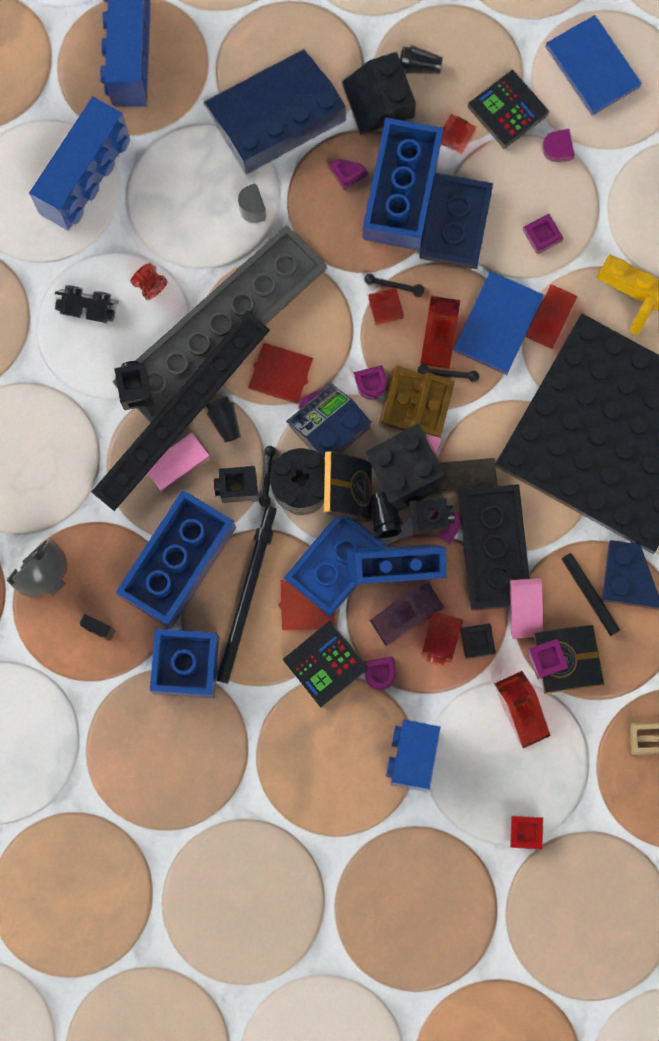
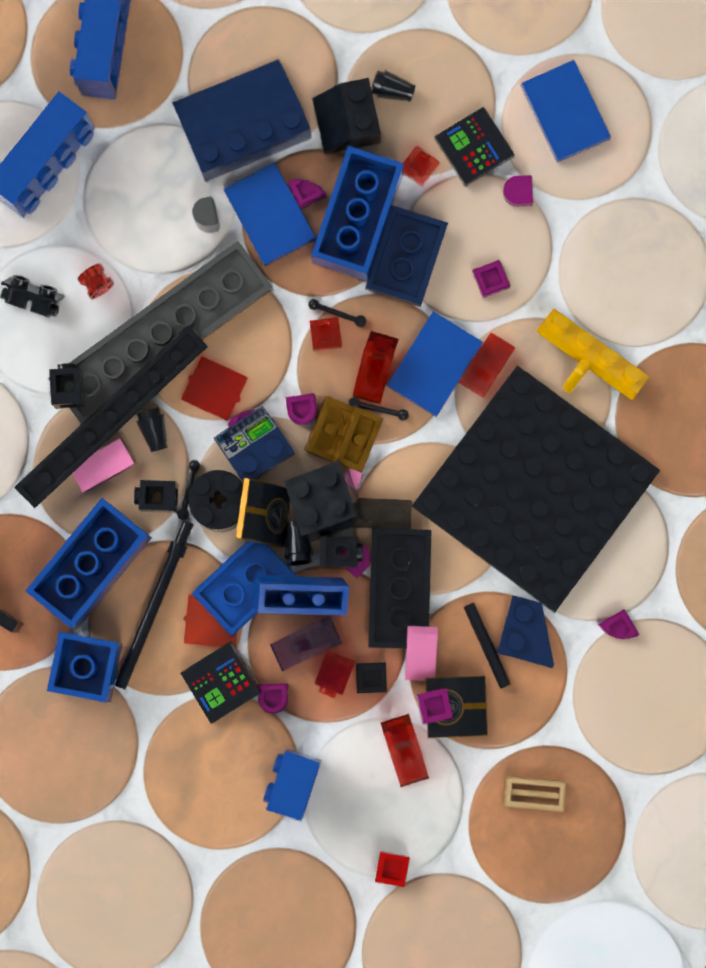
camera: 10 degrees right, 5 degrees up
(314, 197) = (269, 214): none -> blue tile

